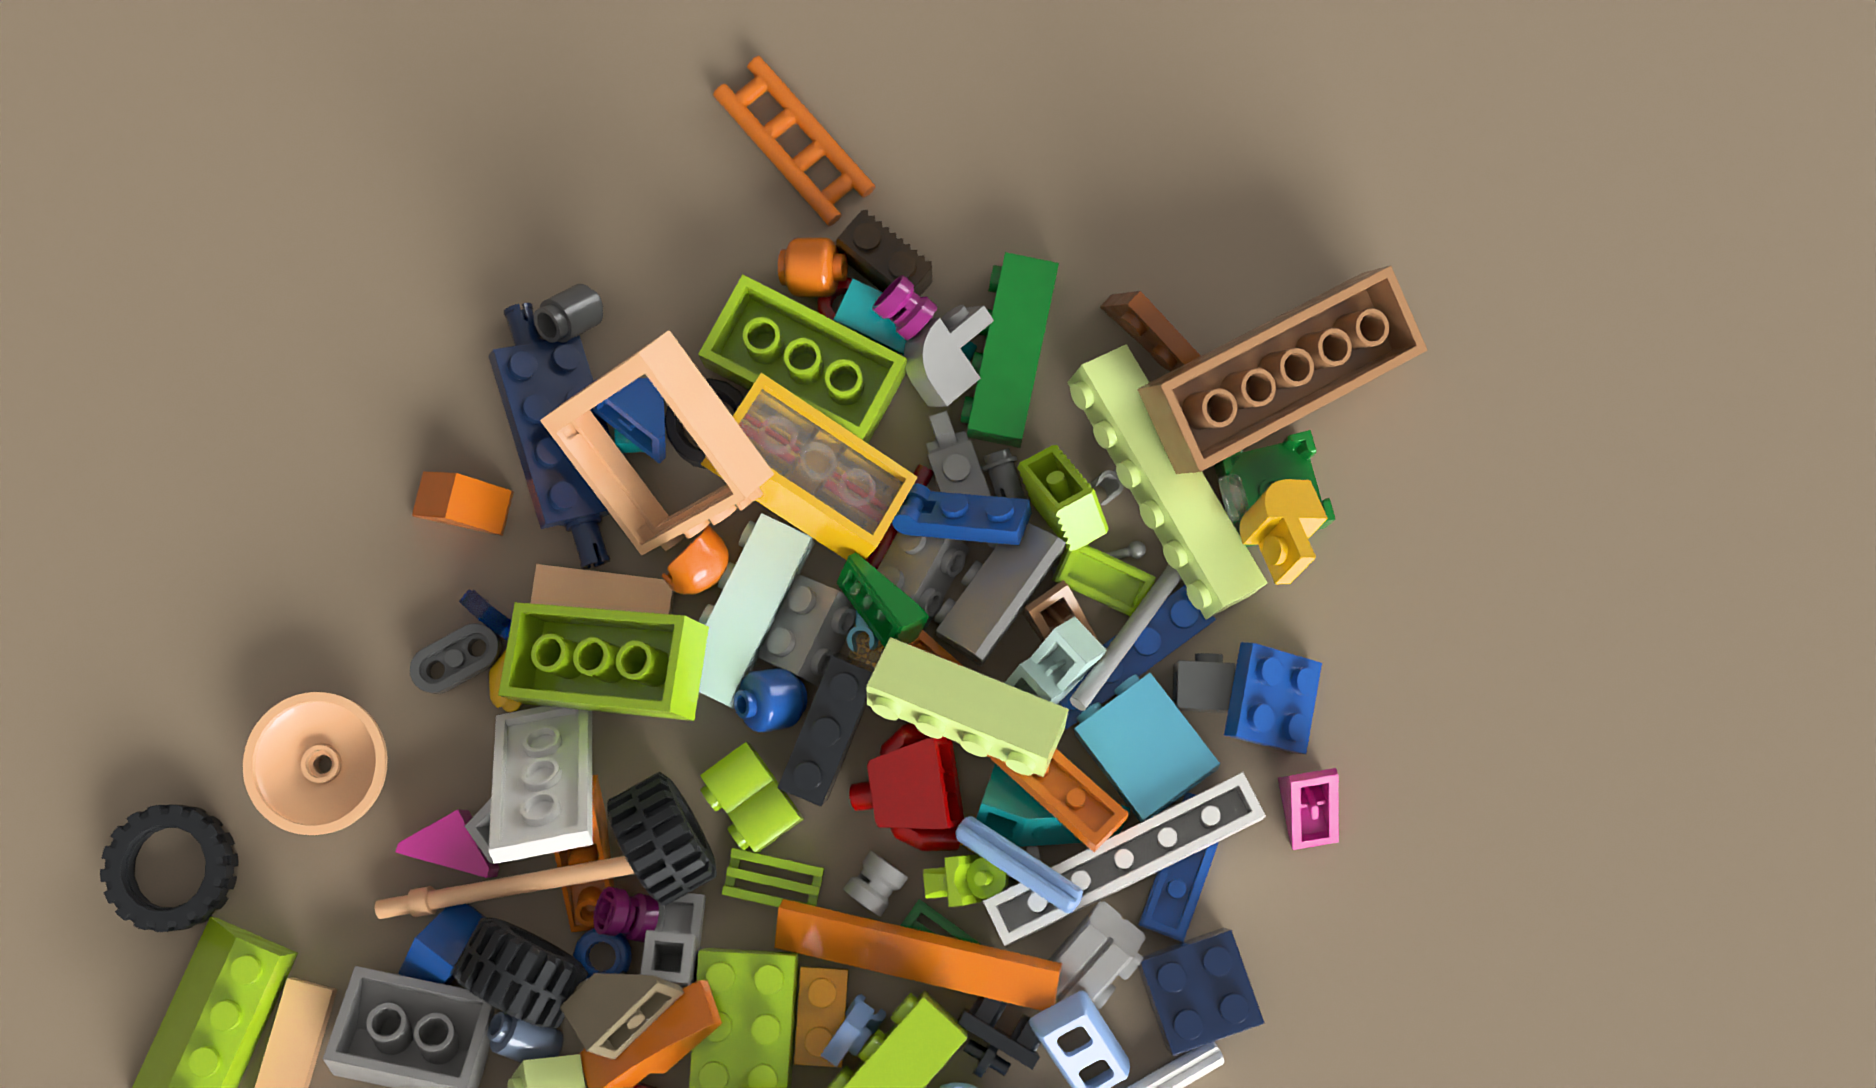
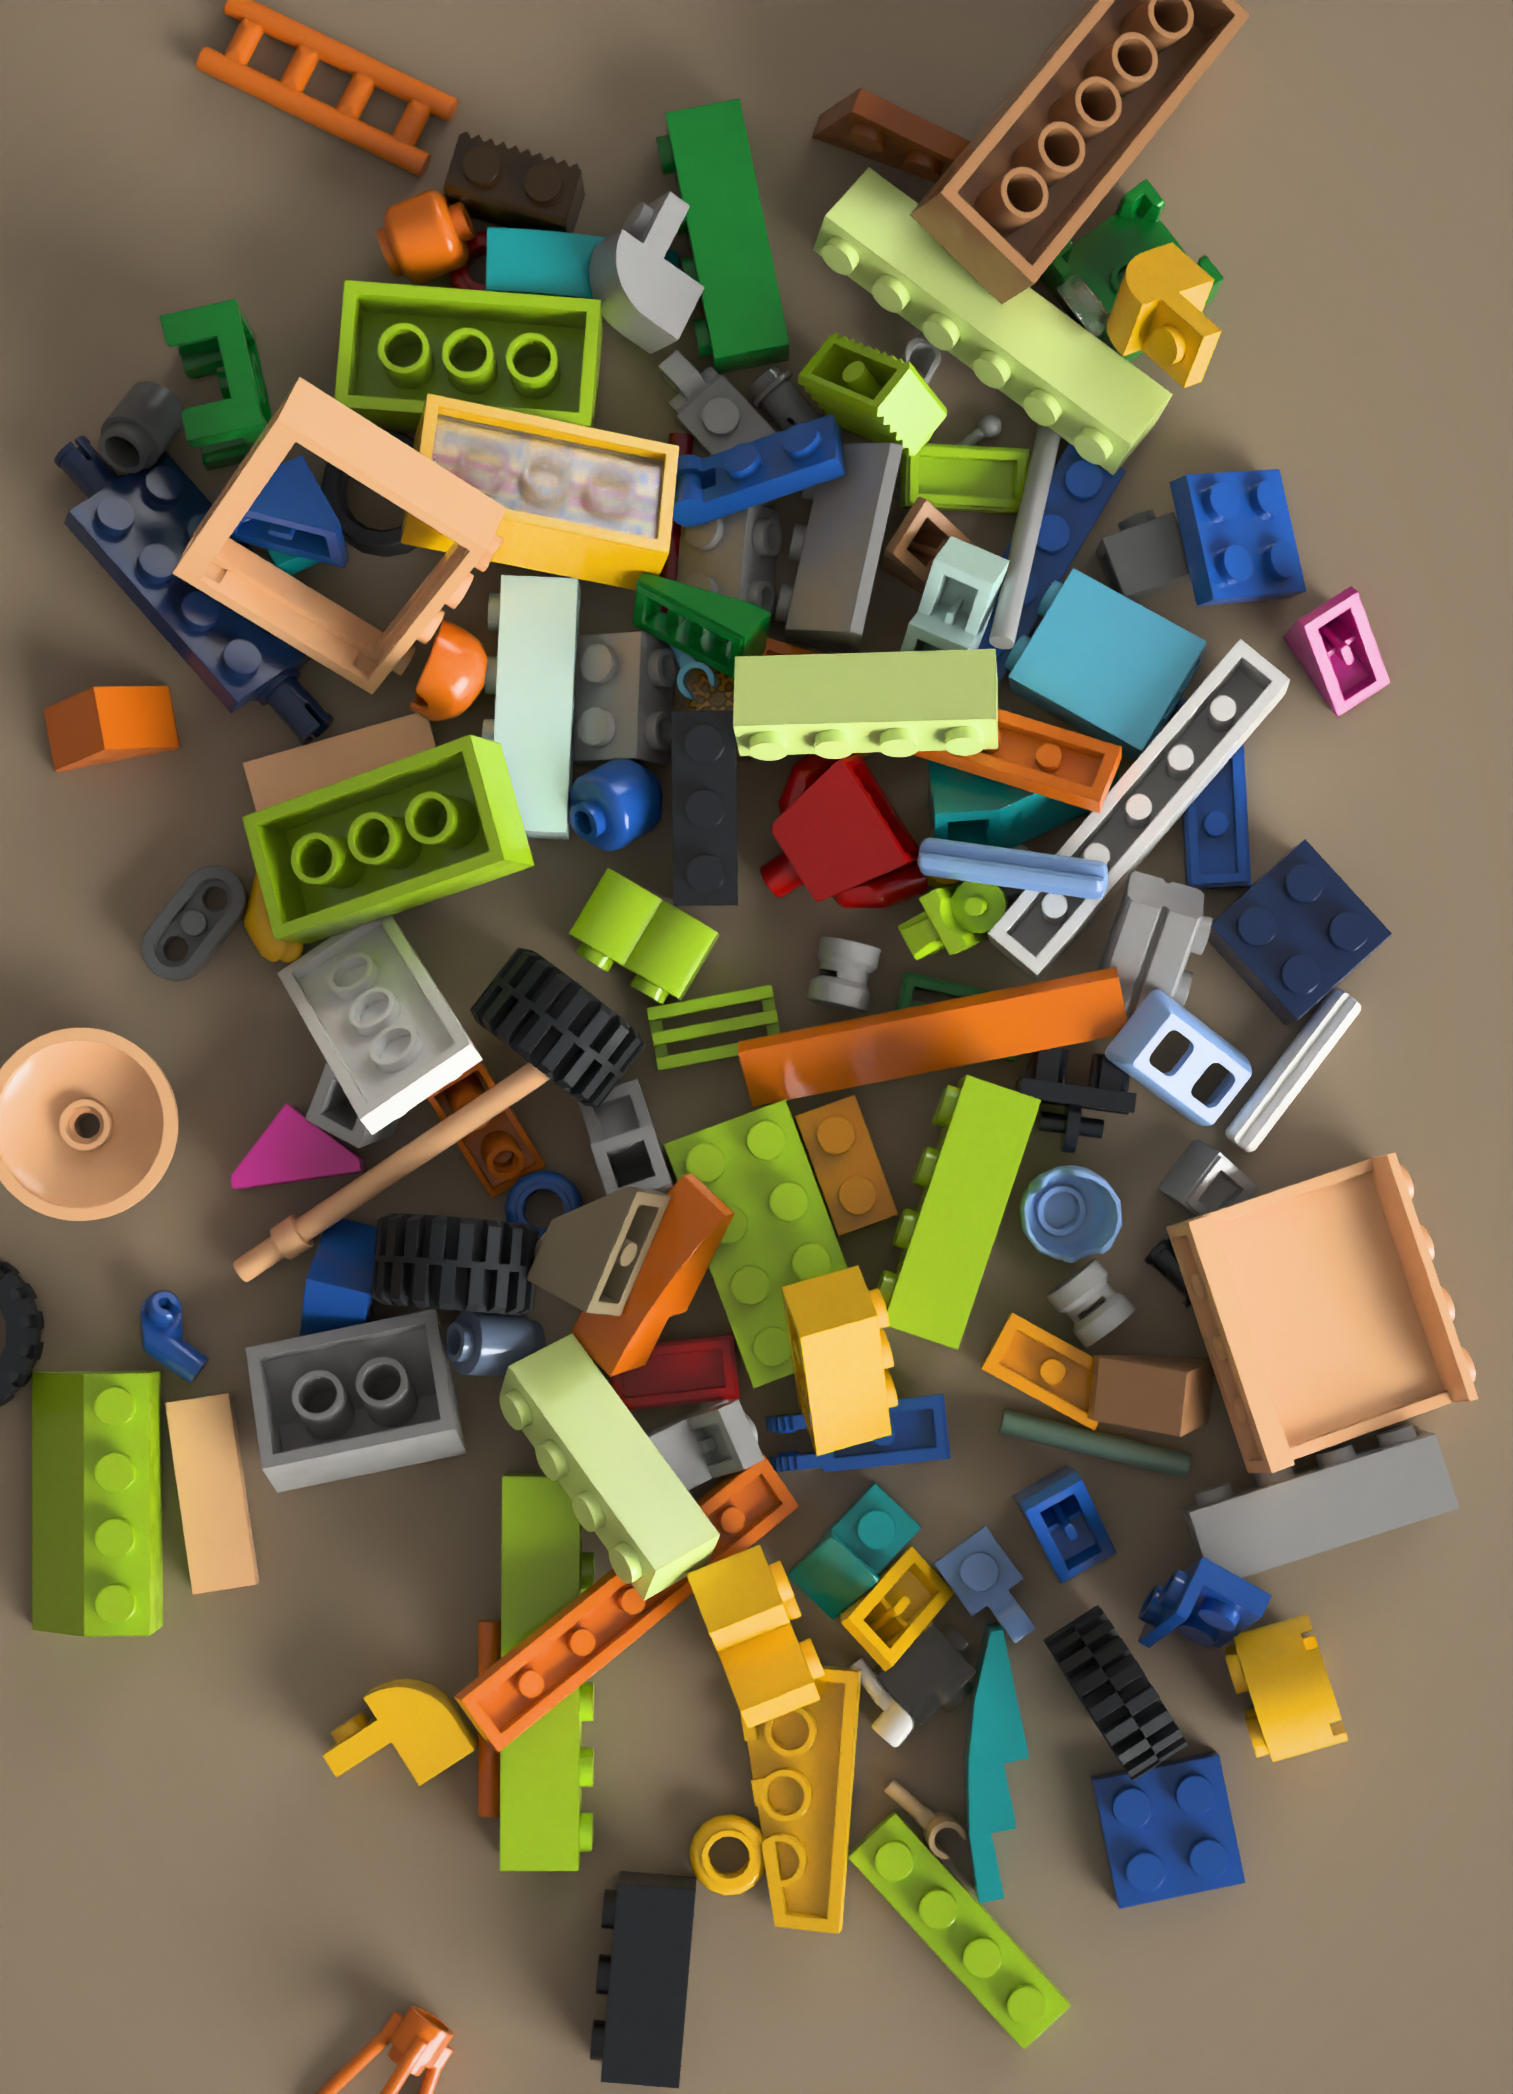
camera: 30 degrees left, 5 degrees up
(308, 931) = (163, 1336): none -> blue arm
(486, 613) = (210, 851): clear blue tile -> none
(625, 914) = (552, 1142): magenta wheel -> none
(651, 289) = (221, 343): none -> green panel
(854, 1030) = (896, 1160): medium blue plate -> none
(904, 307) = (571, 235): magenta wheel -> none

